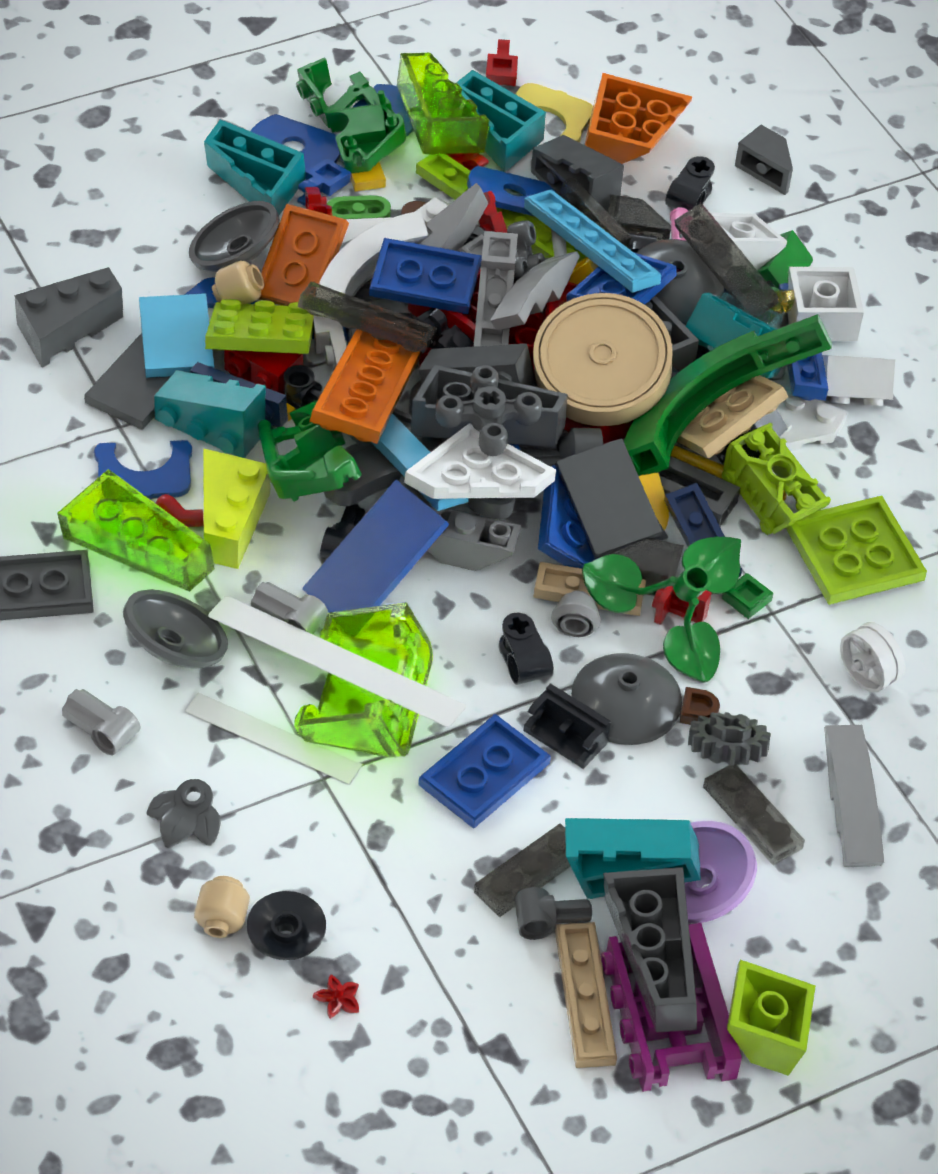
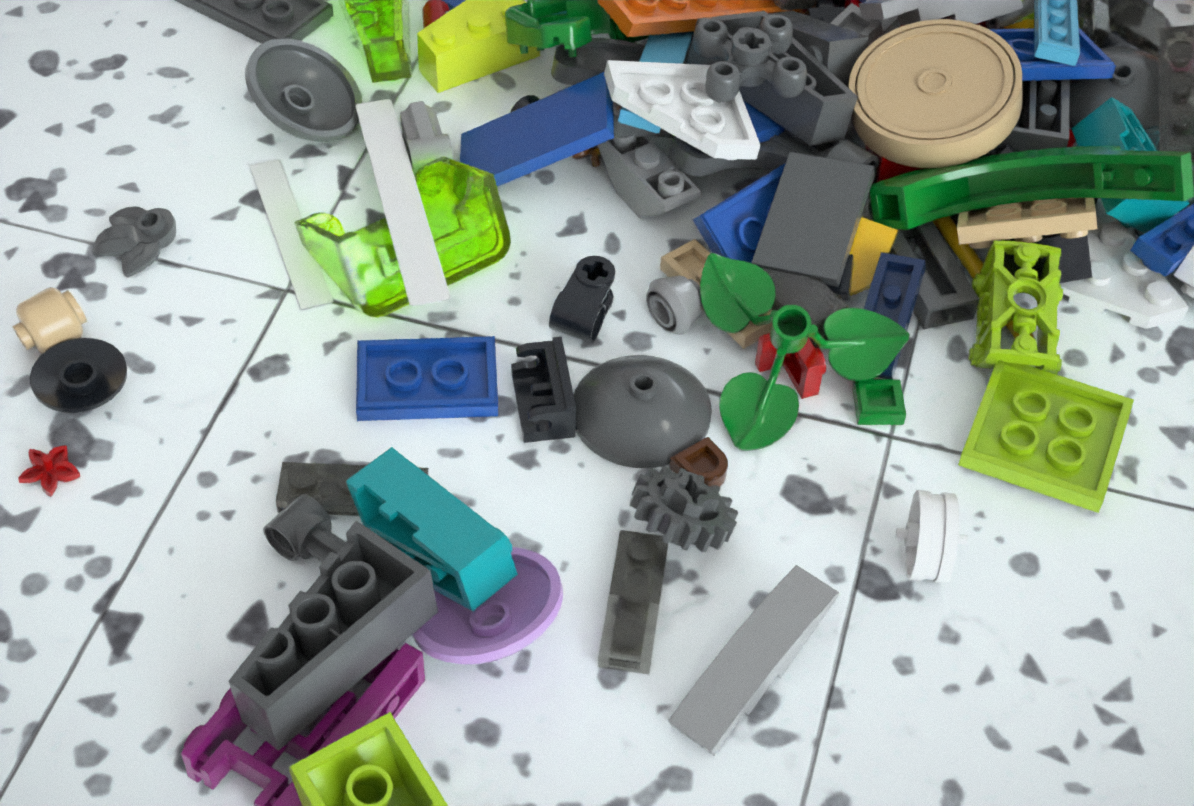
camera: 45 degrees right, 0 degrees up
(107, 726) = (167, 128): light grey piece -> none
(585, 995) = (202, 684): tan tile -> none

